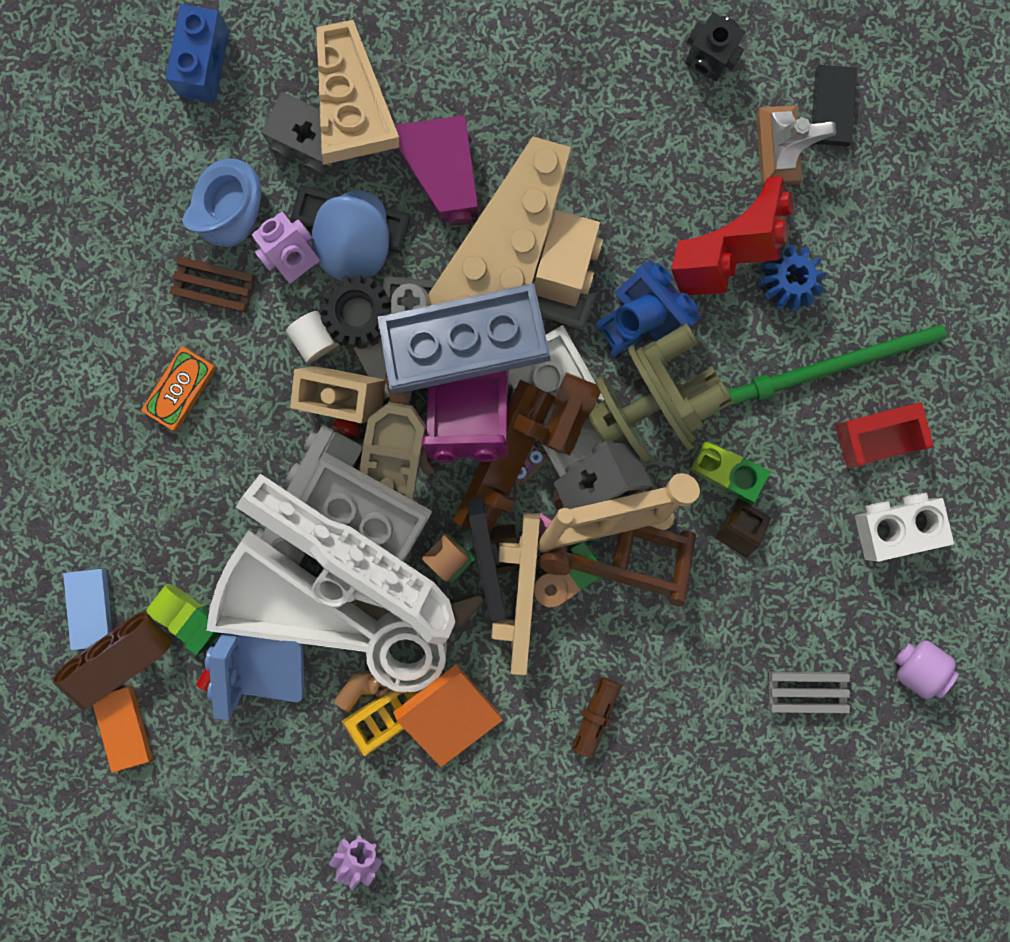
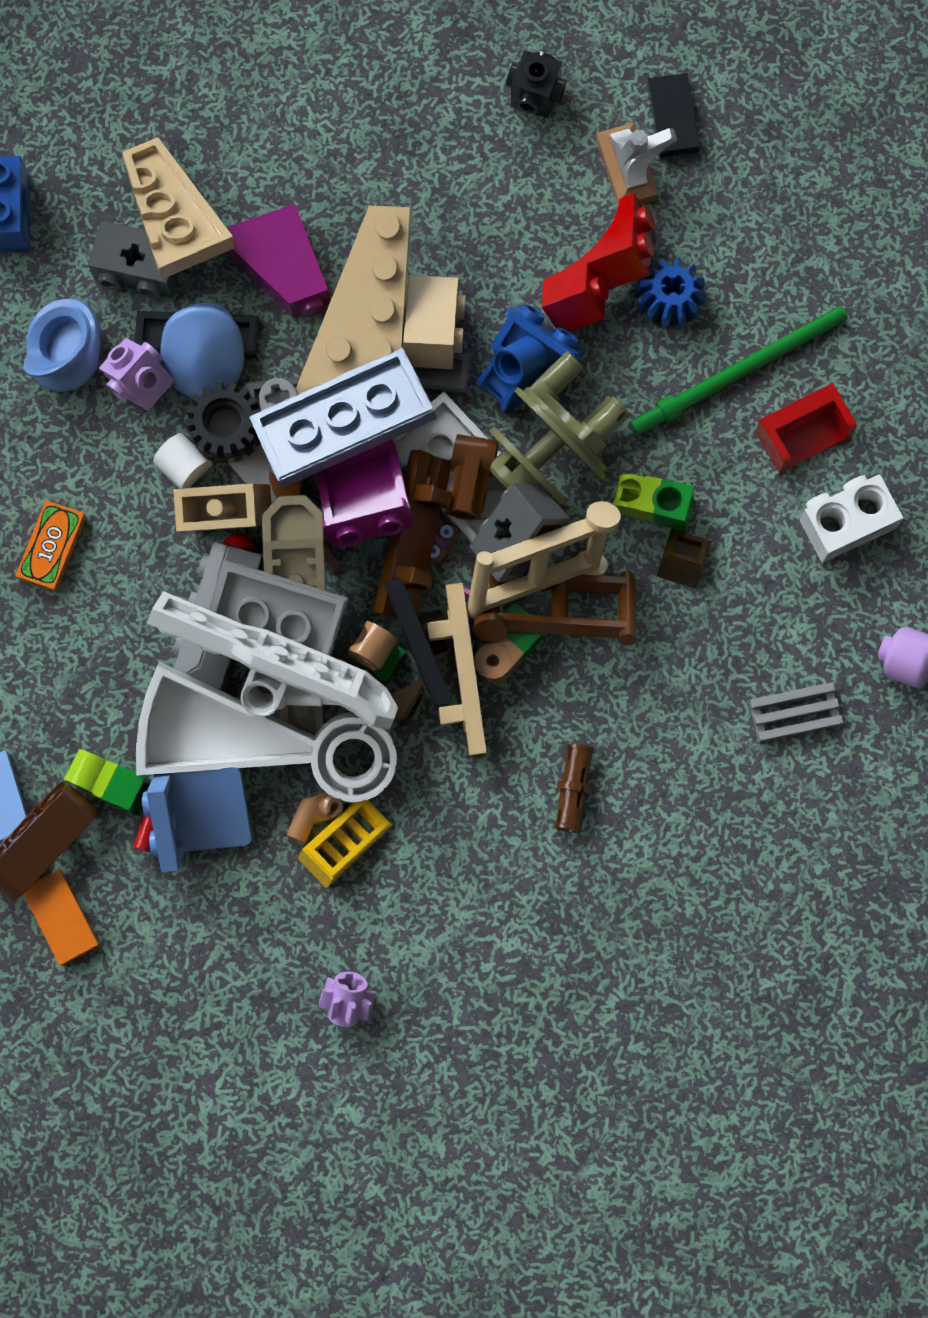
camera: 10 degrees left, 10 degrees down
(182, 277) = (76, 448): reddish brown tile -> none
(448, 715) = (413, 818): orange tile -> none

